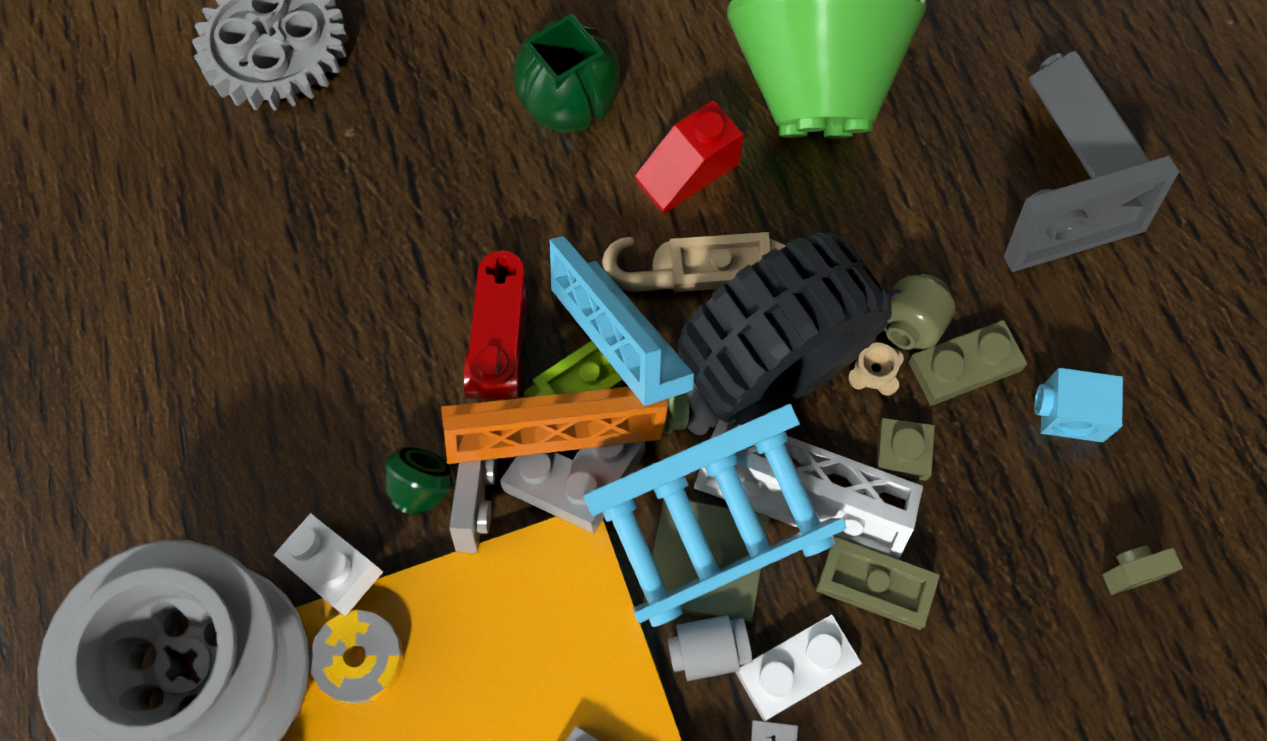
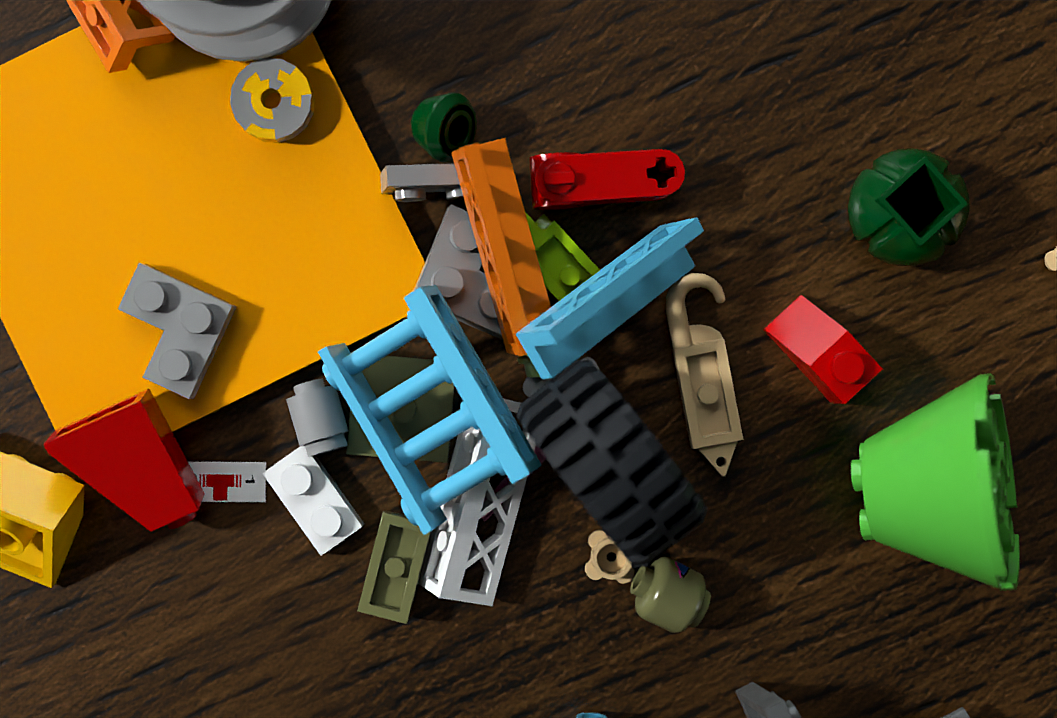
camera: 80 degrees right, 20 degrees up
(328, 564) = (353, 57): white plate -> none
(905, 449) = (531, 588): olive plate -> none
(967, 362) = (627, 647): olive plate -> none

